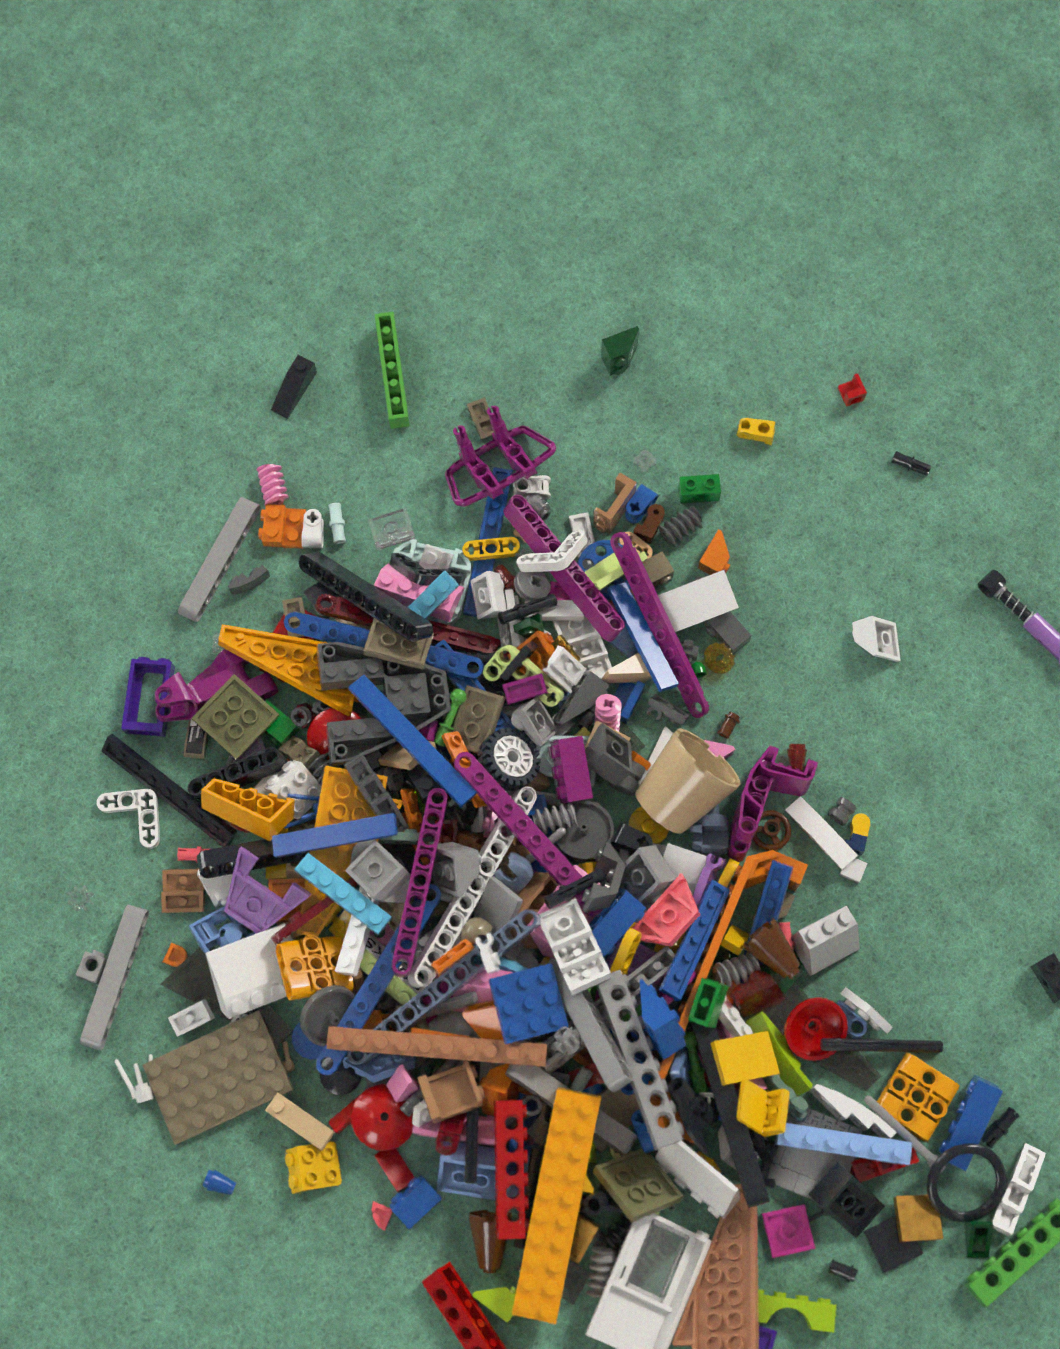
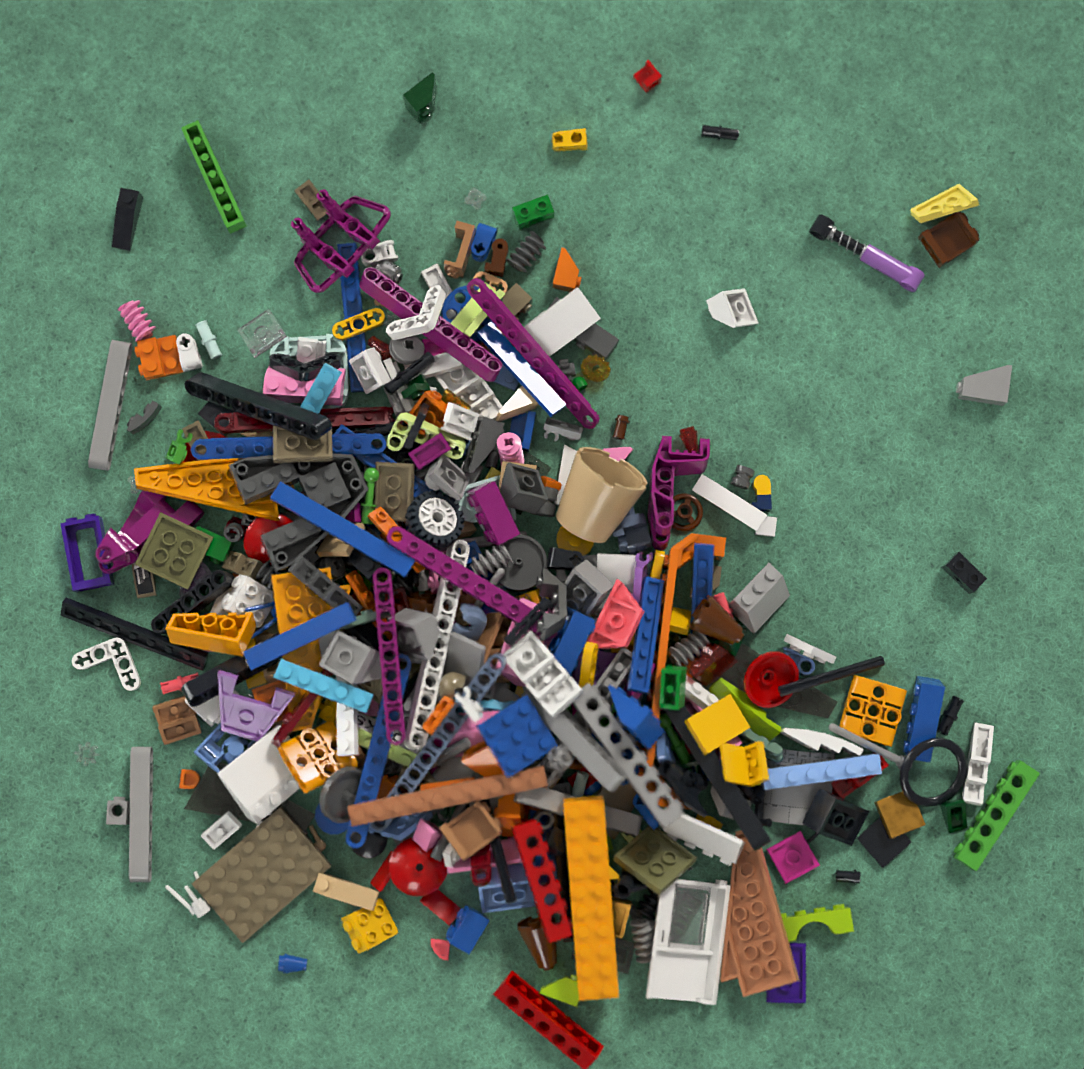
camera: 20 degrees left, 10 degrees up
(270, 621) = (177, 450): none -> bright green plate

